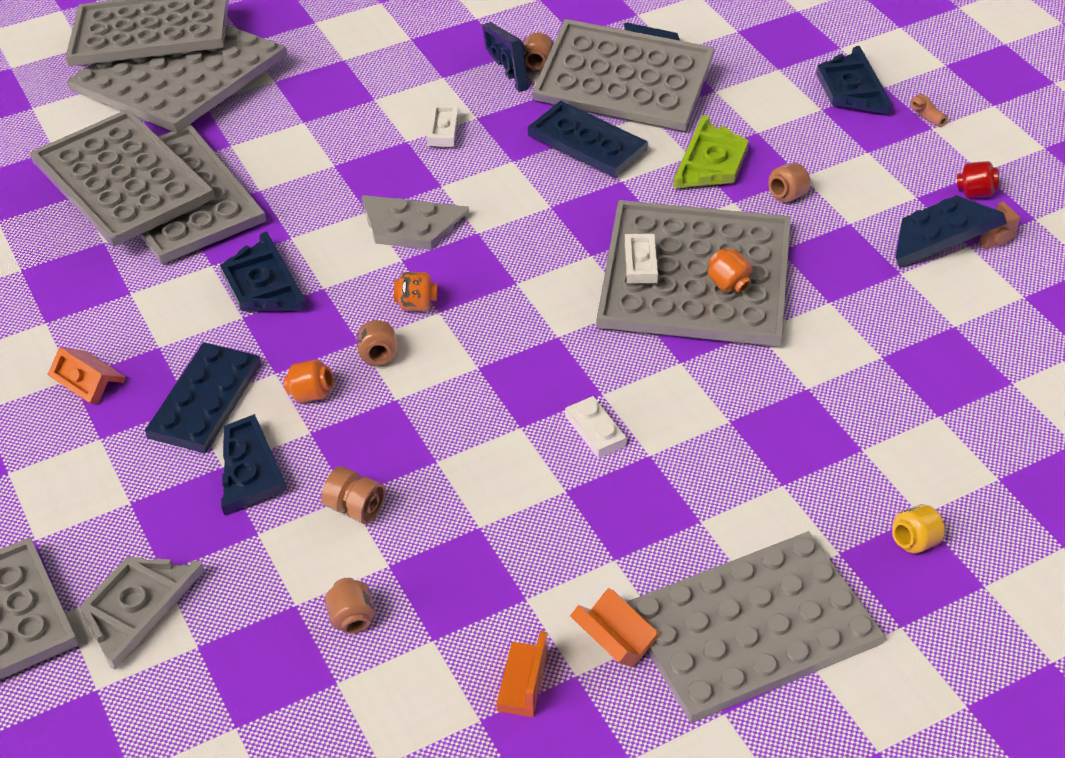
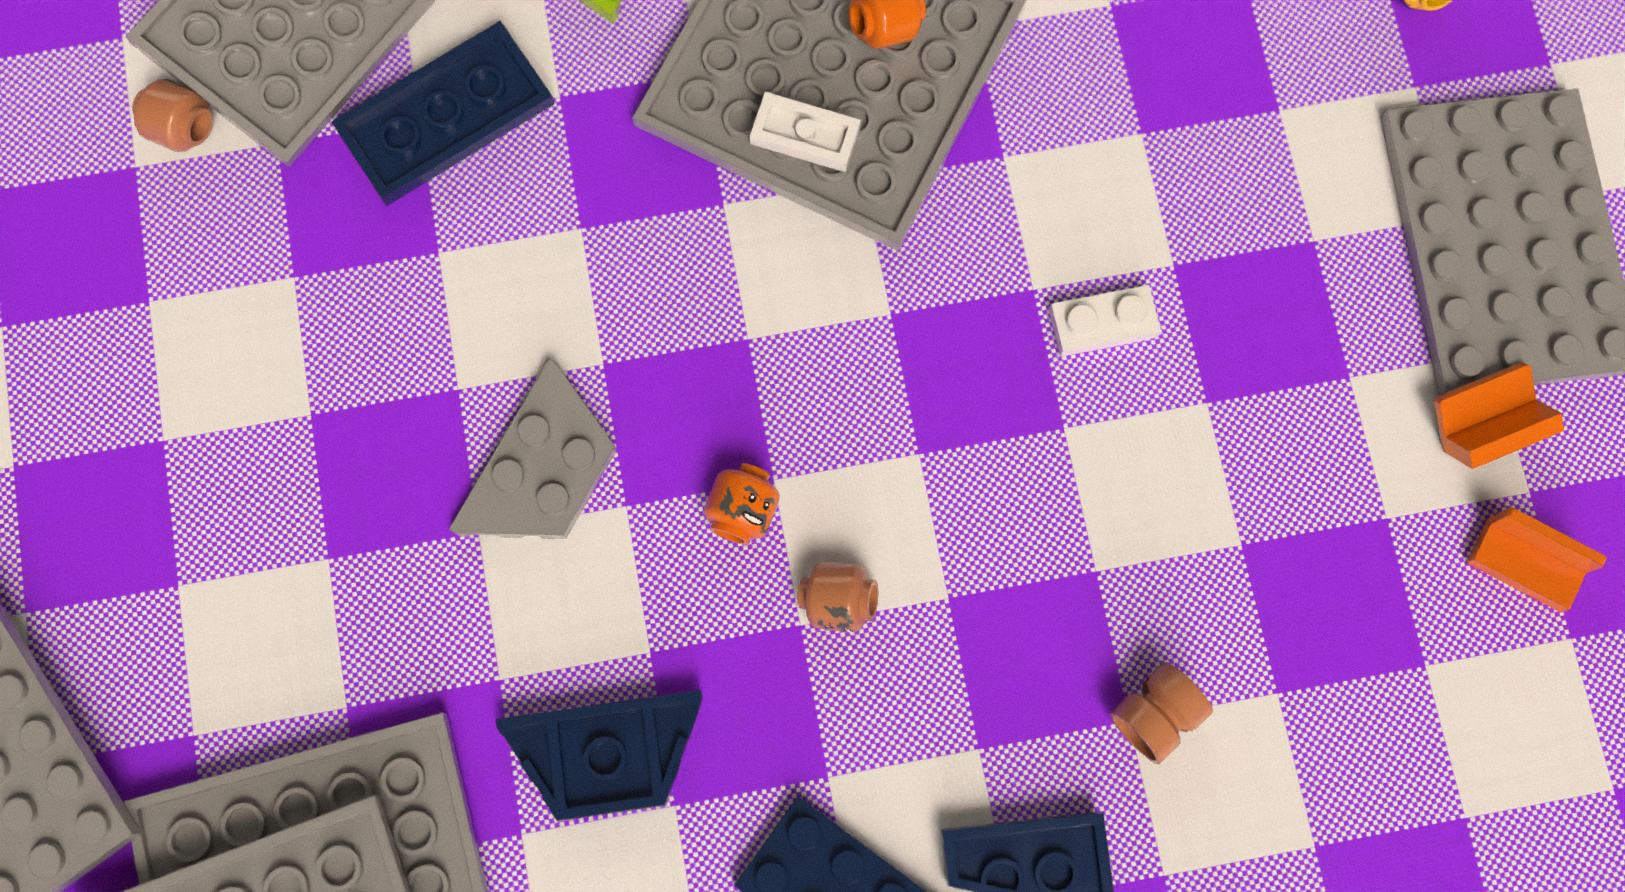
camera: 75 degrees left, 30 degrees up
(309, 381) = (891, 727): orange head -> none
(350, 605) = (1366, 768): nougat head -> none
(442, 125) = (308, 340): white plate -> none
(506, 50) = (139, 167): dark blue wing -> none

